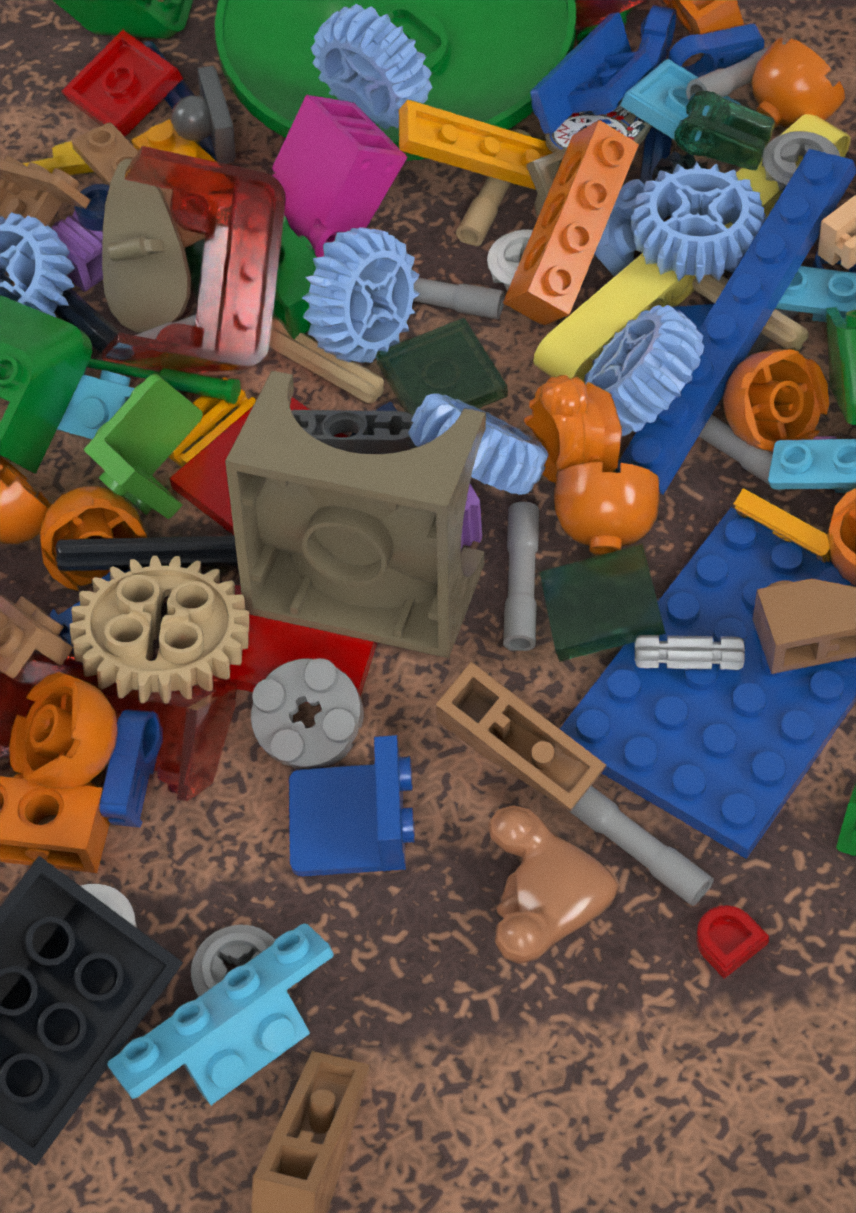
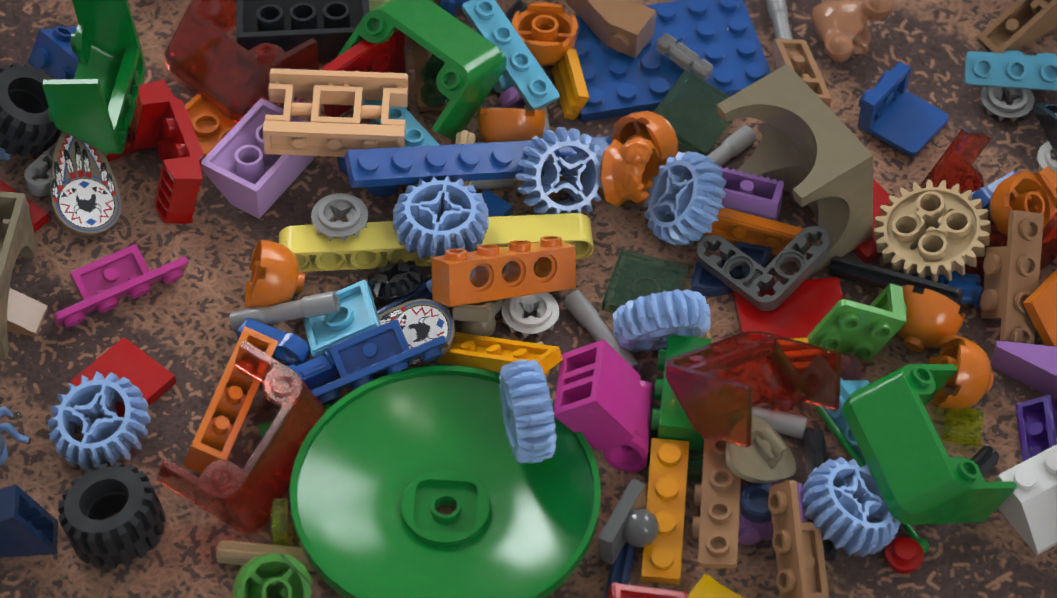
camera: 145 degrees left, 5 degrees down
(278, 700) = (900, 166): light grey plate -> none
(728, 131) = (365, 263): clear green piece -> none

